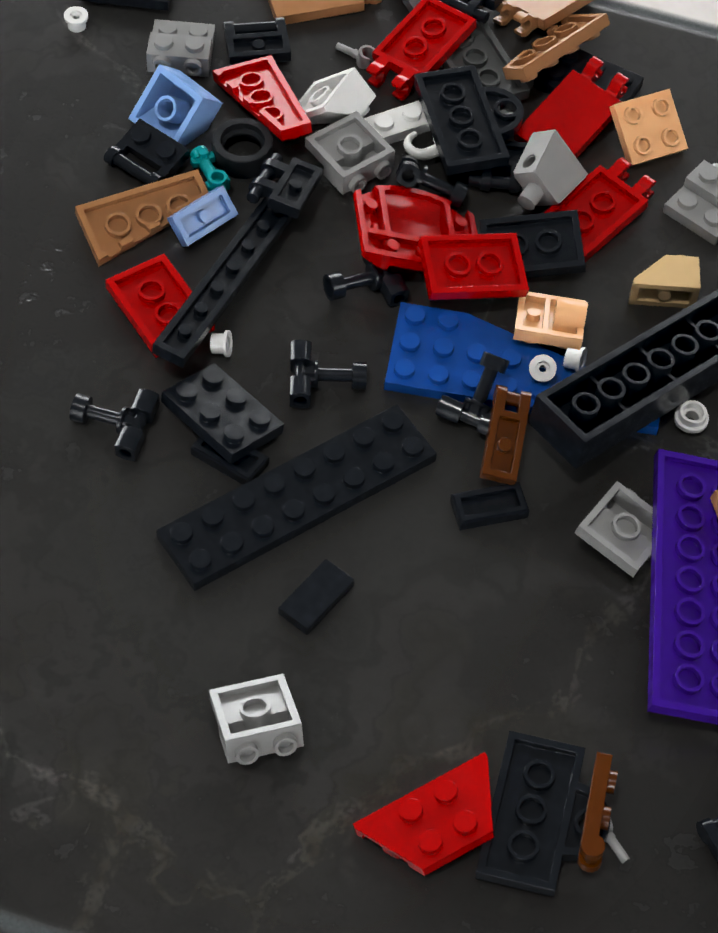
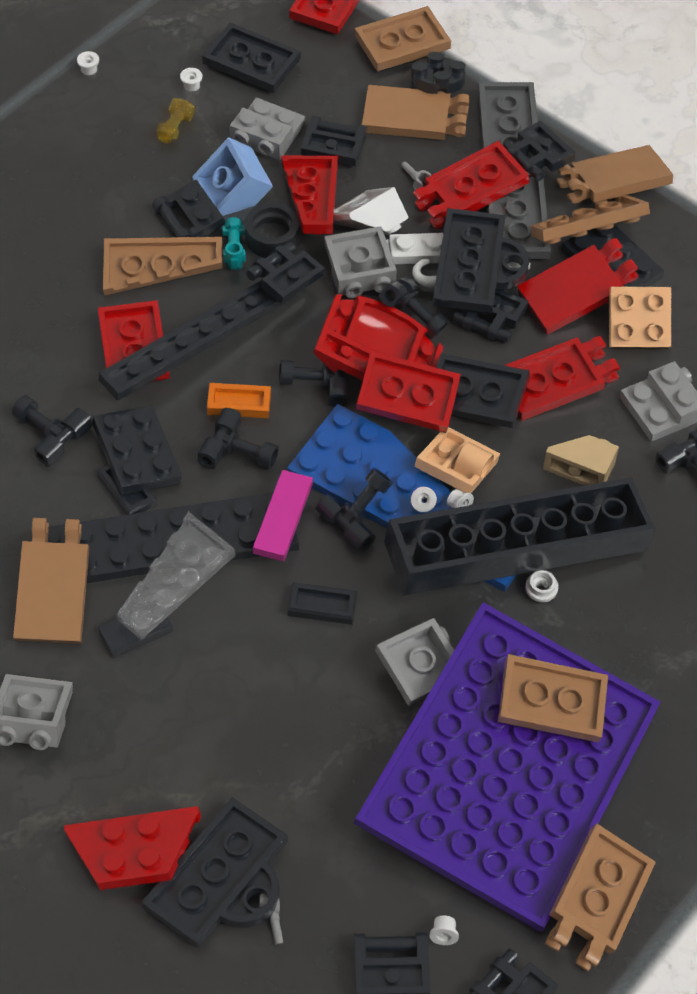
camera: 25 degrees right, 0 degrees up
(82, 53) = (180, 110): none -> clear yellow bar
(202, 216) = (207, 278): medium blue plate -> none
(212, 581) = (52, 586): none -> medium nougat tile
(221, 343) = (168, 391): white piece -> none
(308, 325) = (246, 399): none -> orange tile
(336, 523) = (181, 570): none -> clear wing
(411, 430) = (283, 515): none -> dark pink tile
(505, 436) = (358, 547): reddish brown plate -> none
(547, 170) = (522, 329): light grey torso -> none
(597, 814) = (260, 890): reddish brown plate -> none

